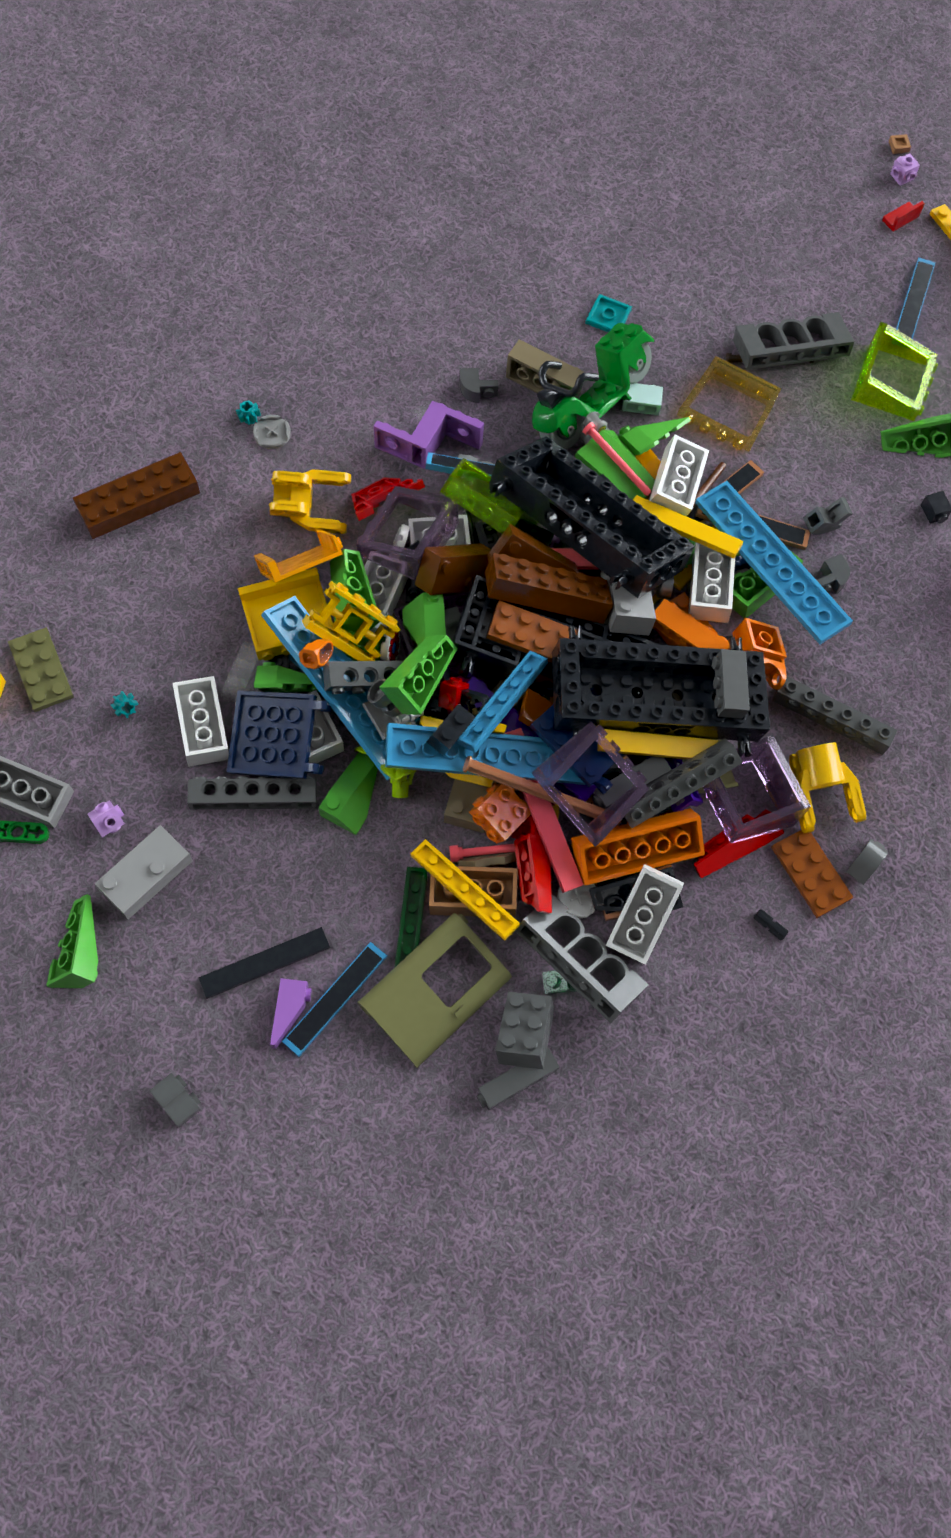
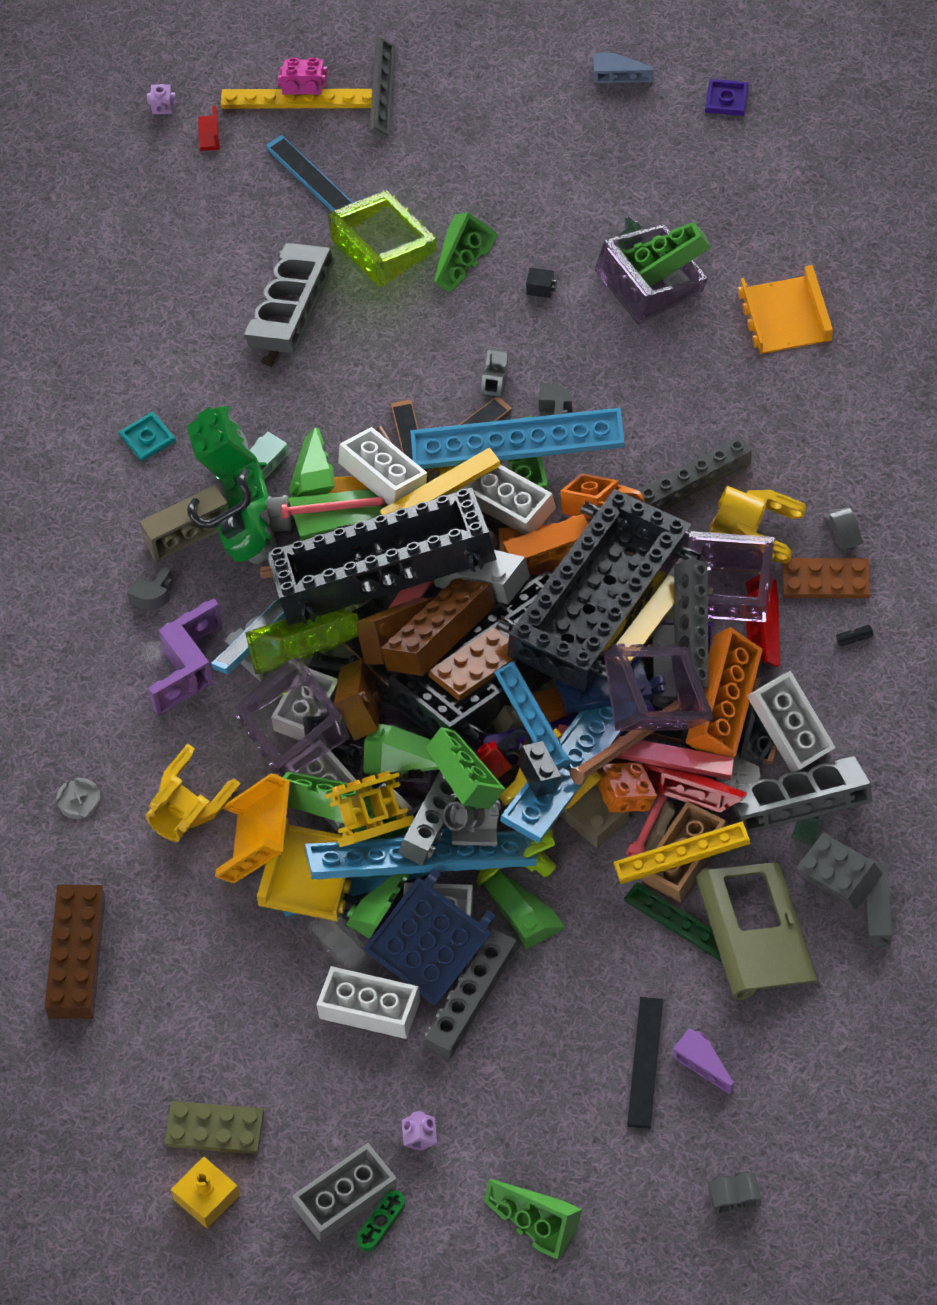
camera: 50 degrees left, 10 degrees down
(124, 700) = (306, 1064): teal gear -> none
(144, 872) = (495, 1122): light grey brick -> none
(248, 412) = (44, 807): teal gear -> none
(316, 653) = (383, 851): orange rock -> none
(334, 999) = (715, 1018): black tile -> none
(373, 494) = (219, 731): red wing -> none
(401, 536) = (286, 735): white tile -> none
(731, 683) = (635, 525): dark grey brick -> none
(740, 381) = (307, 362): clear yellow windscreen -> none
(899, 144) = (126, 86): medium nougat plate -> none

